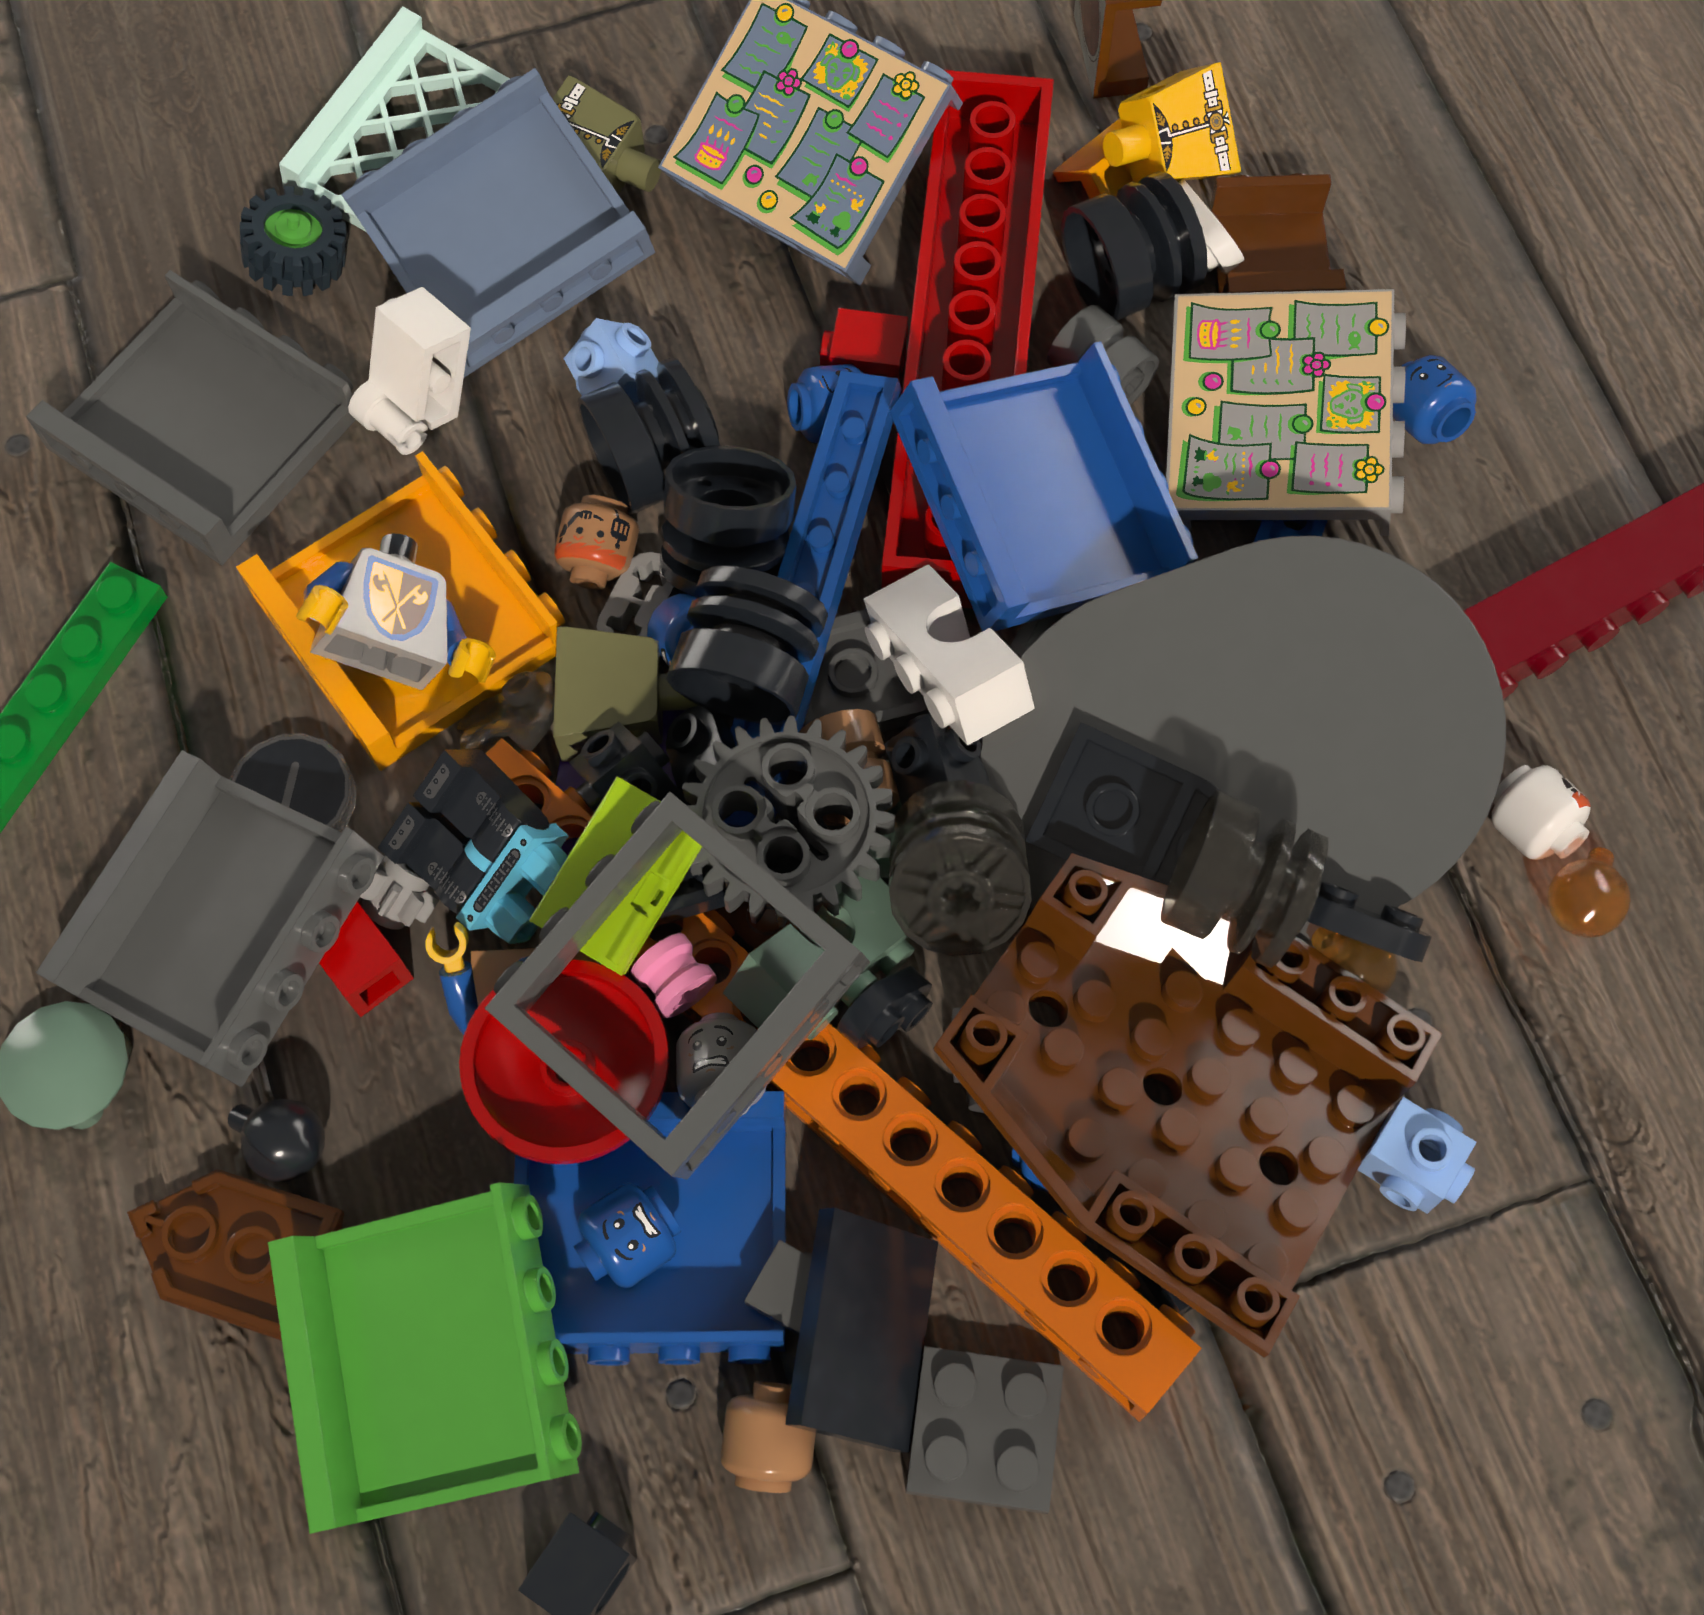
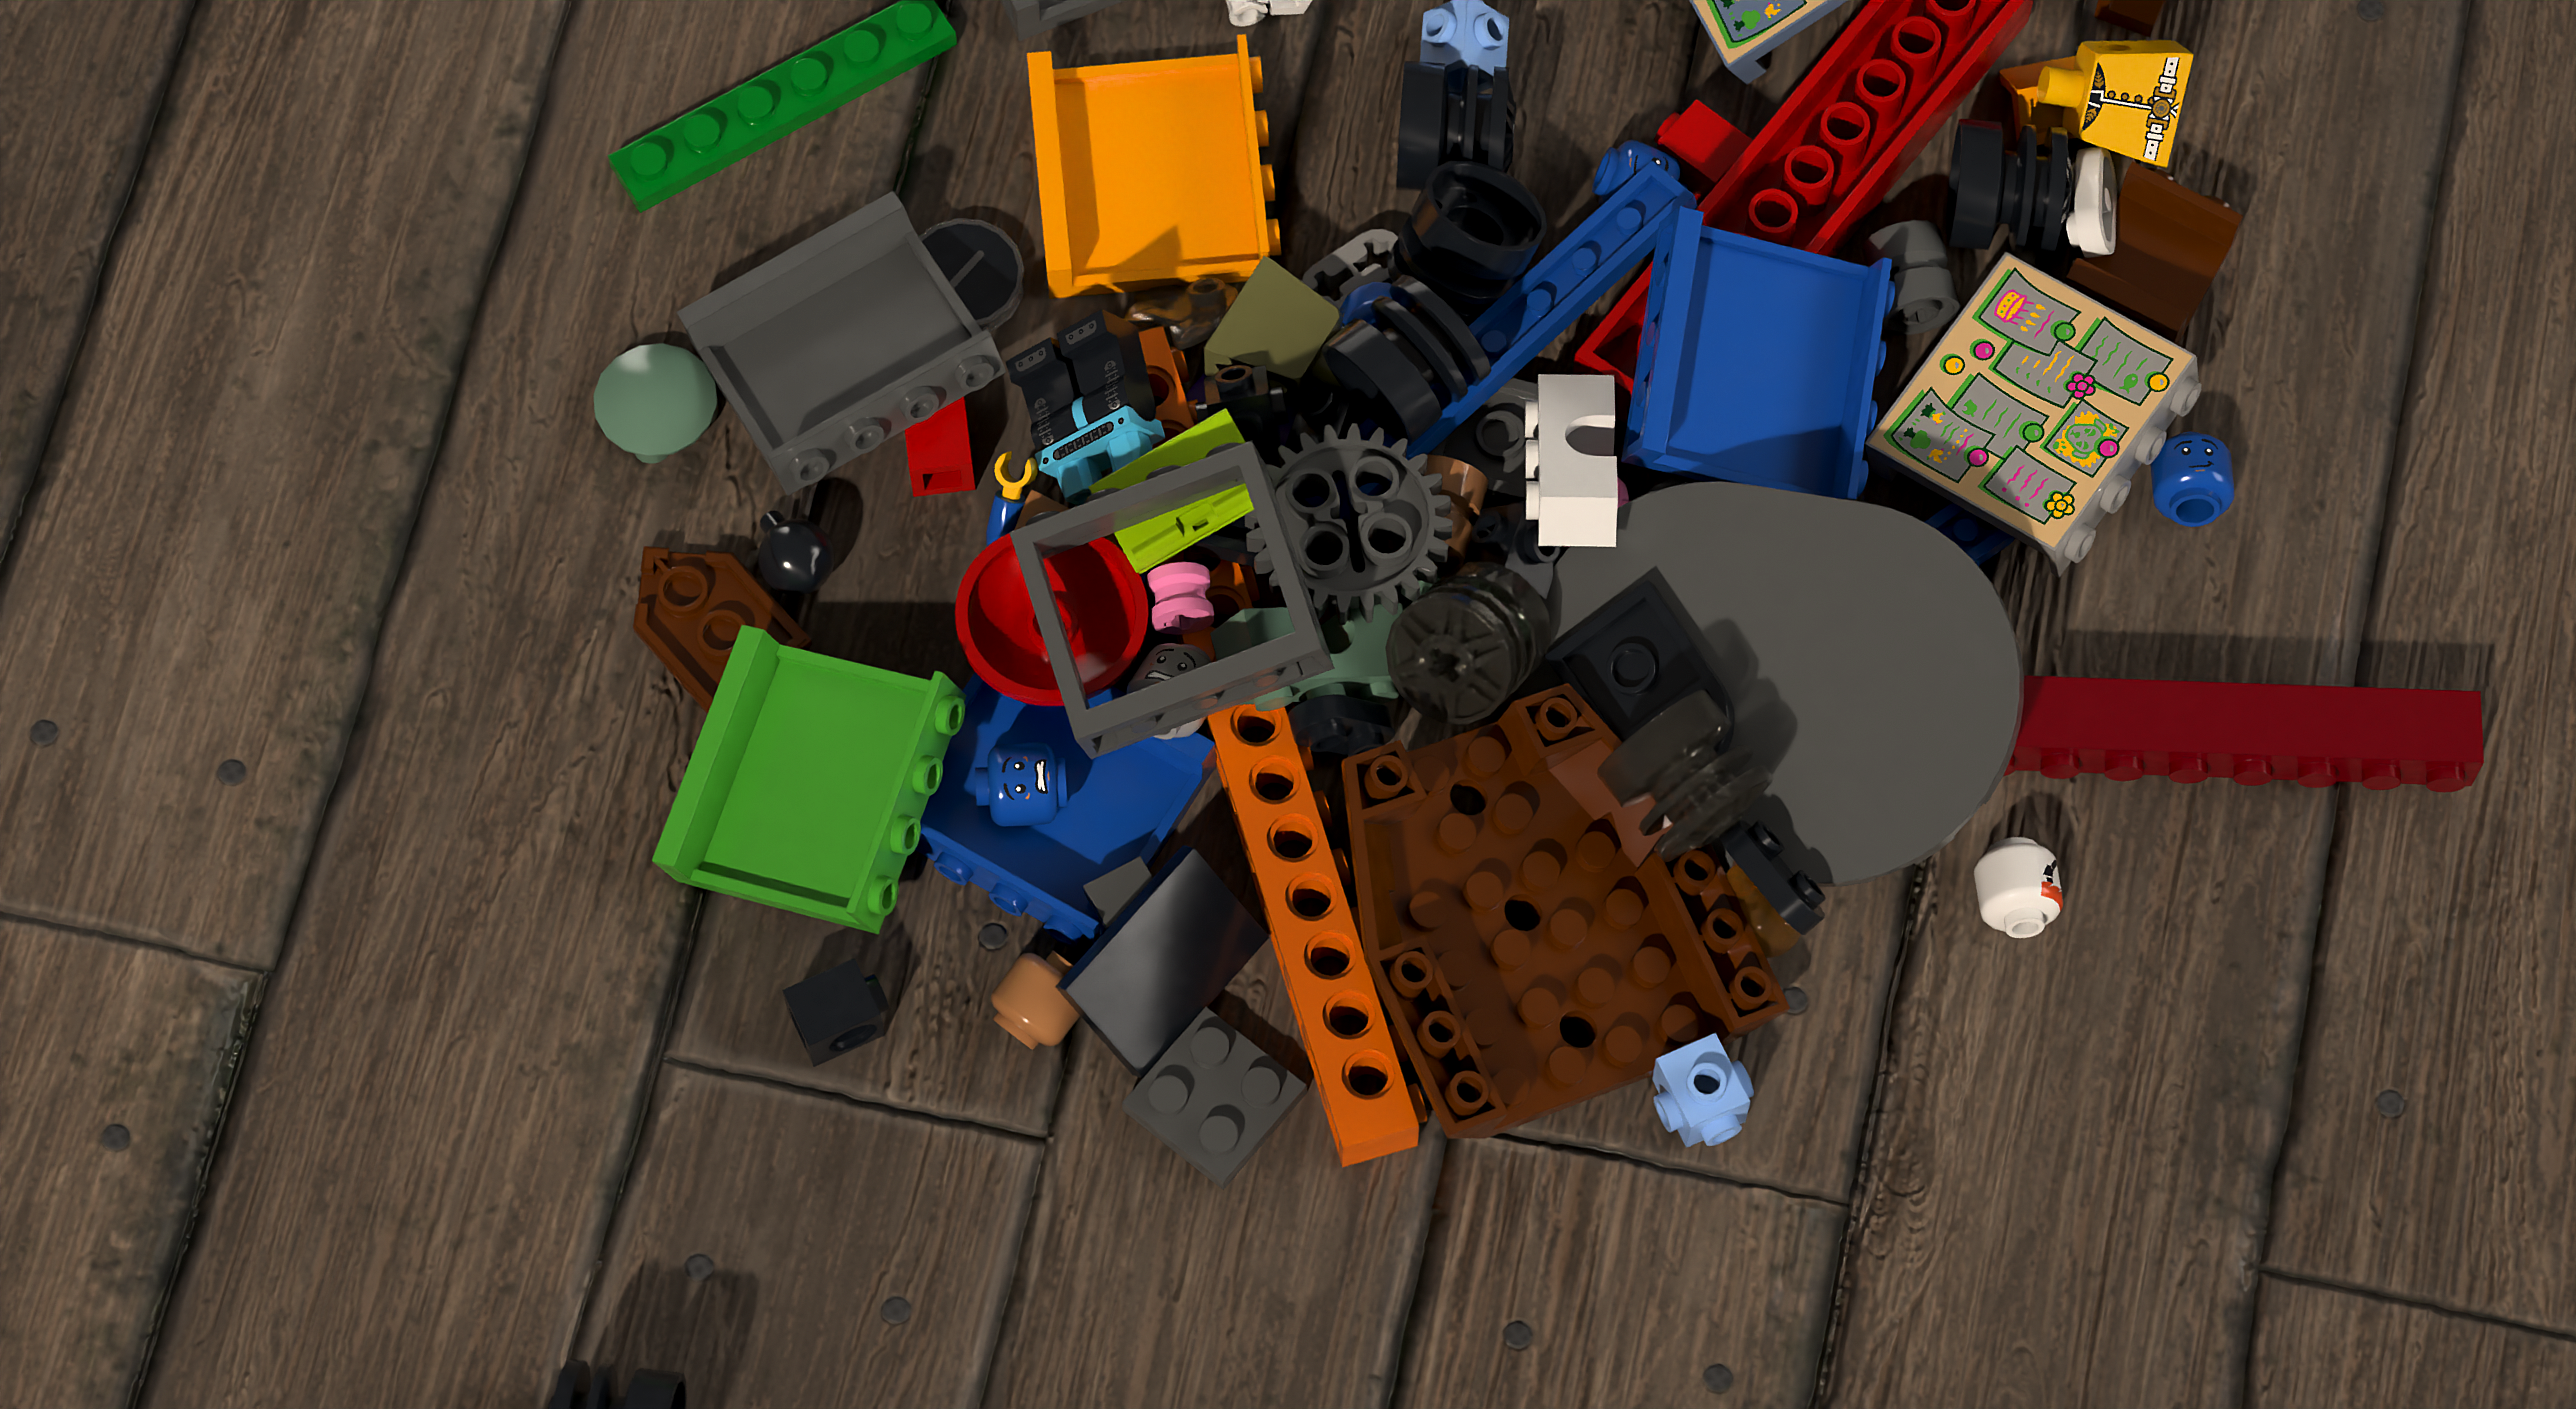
camera: 30 degrees right, 0 degrees up
(391, 618) = (1131, 170): torso -> none
(398, 896) = (999, 412): light grey gear -> none
(596, 541) = (1350, 197): medium nougat head -> none
(1589, 895) = (2008, 977): clear orange piece -> none

